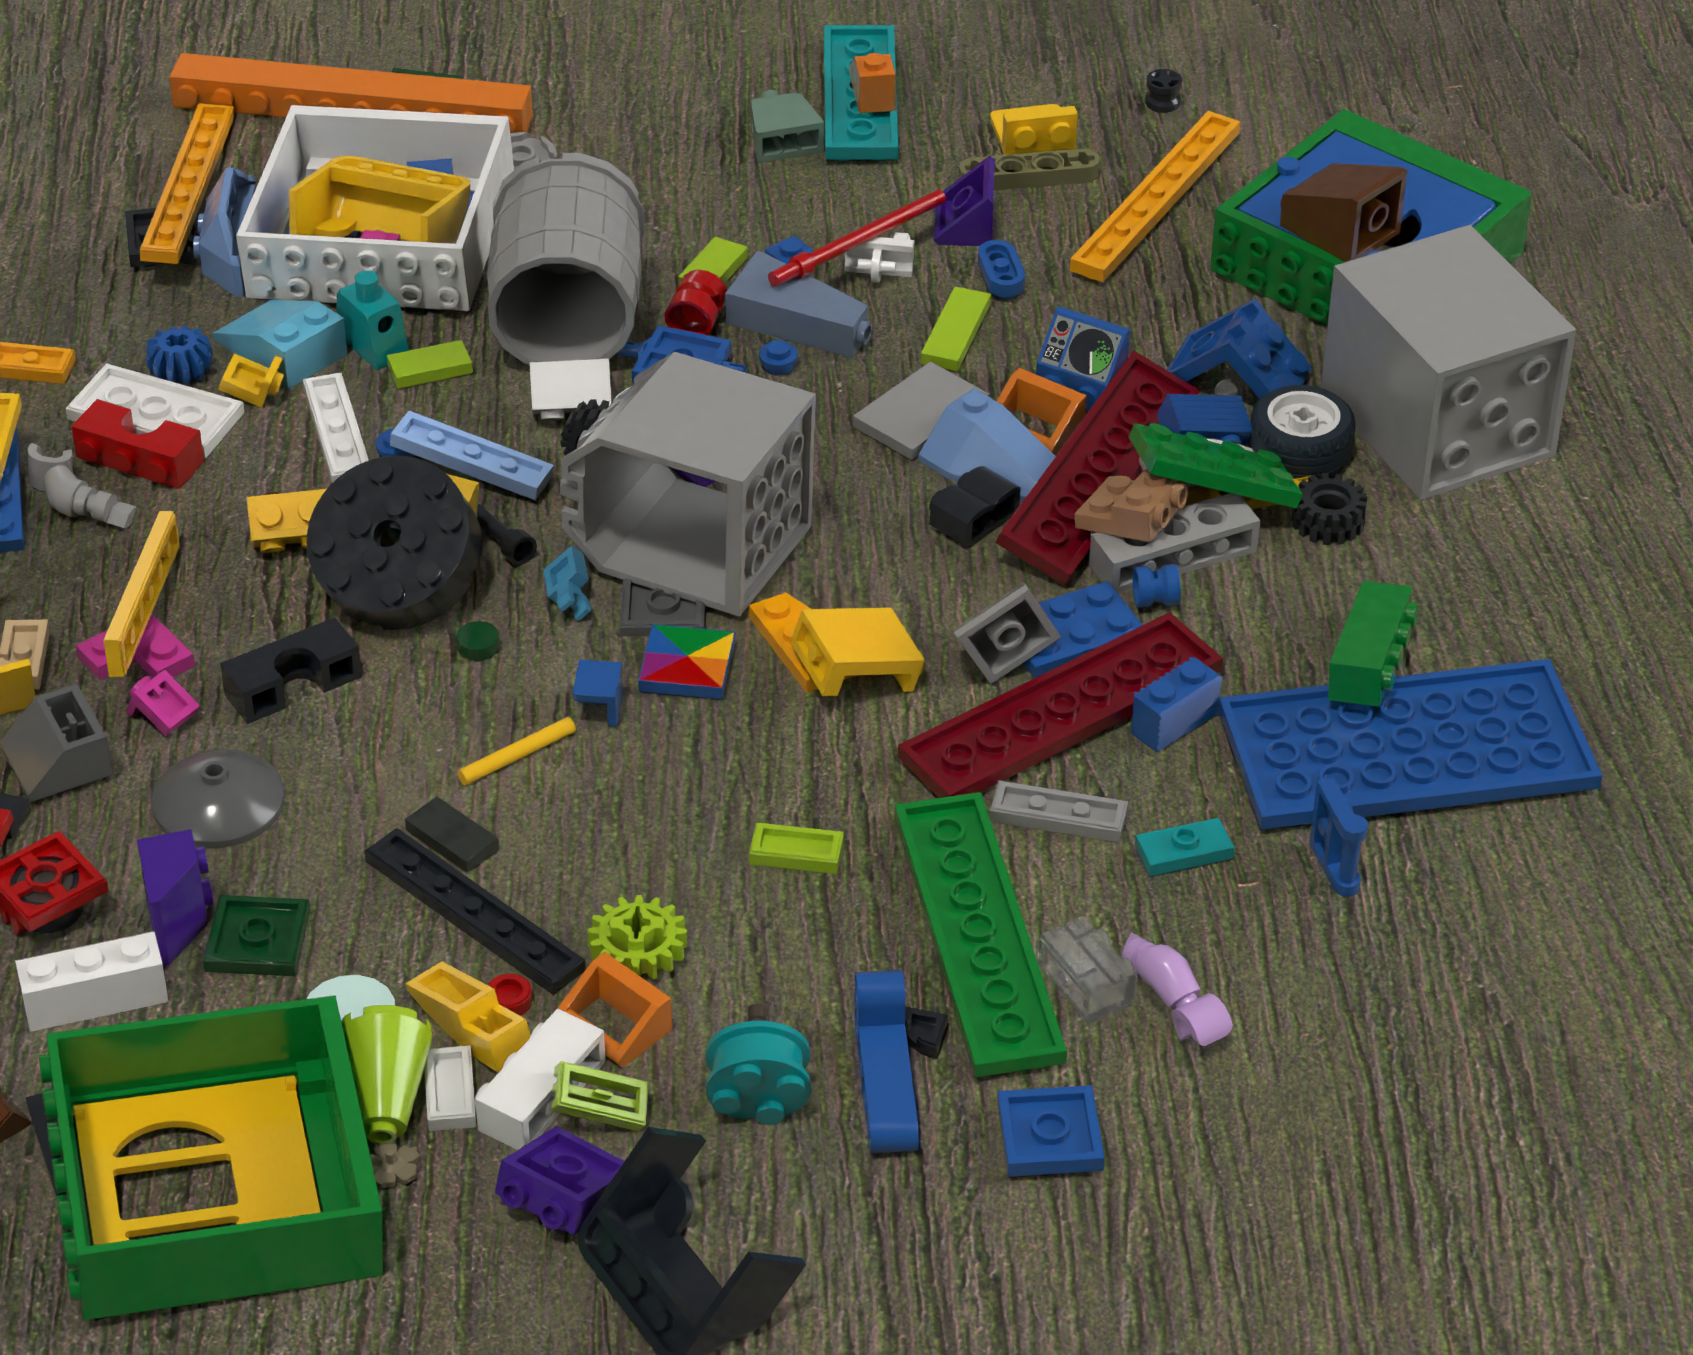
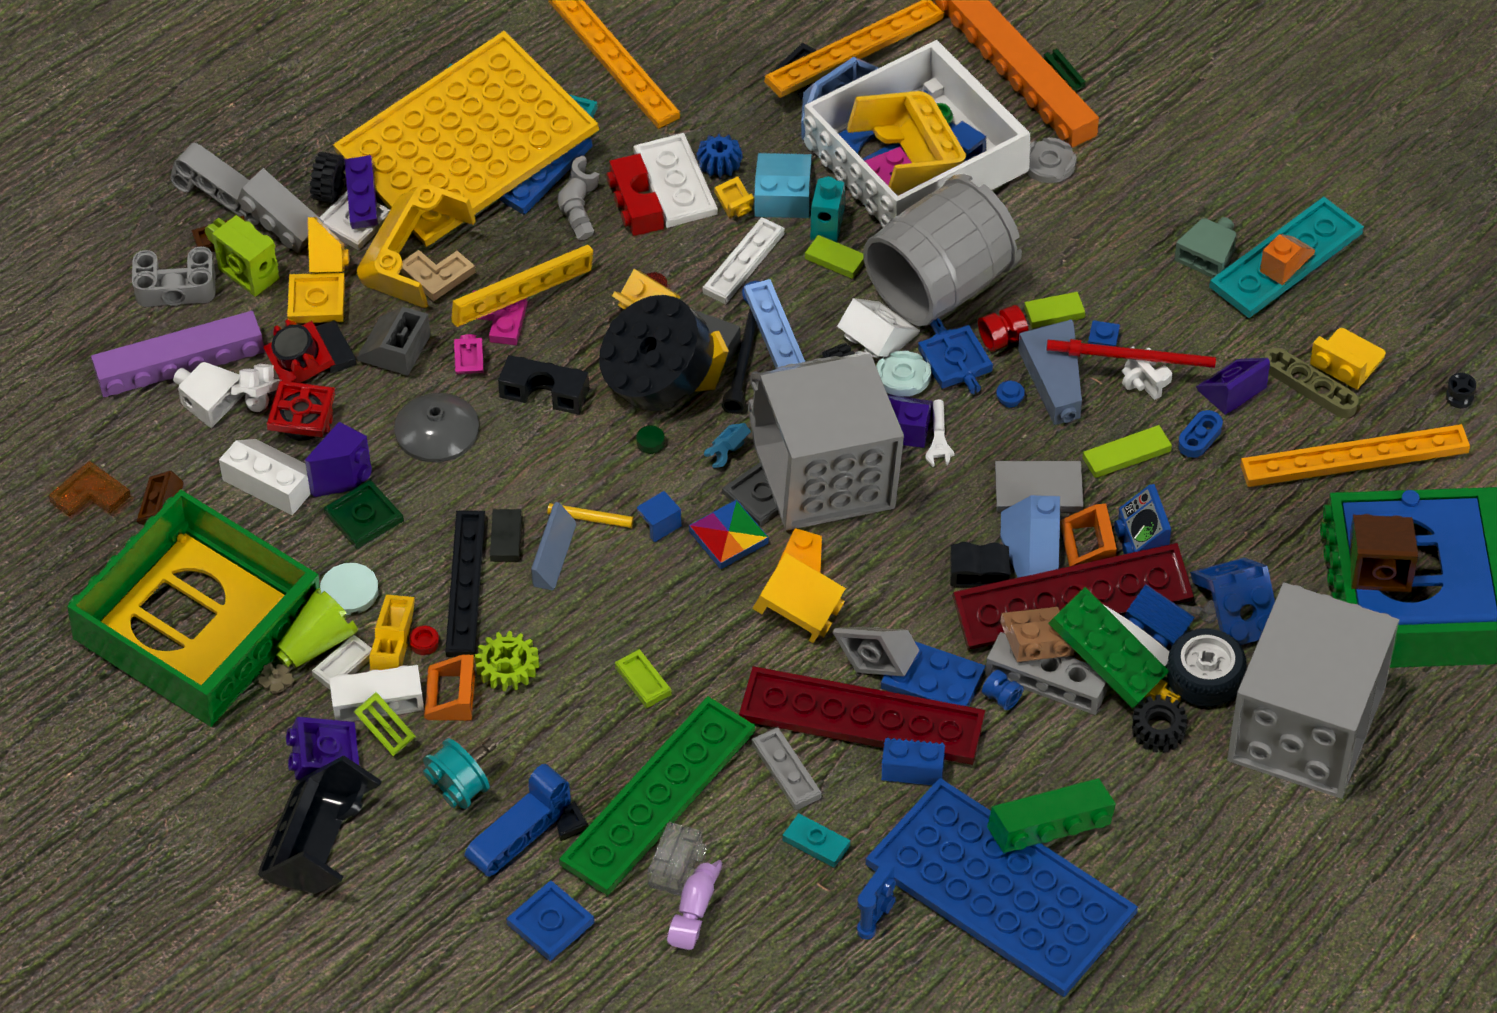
camera: 50 degrees right, 10 degrees up
(522, 808) = (553, 548): none -> sand blue slope

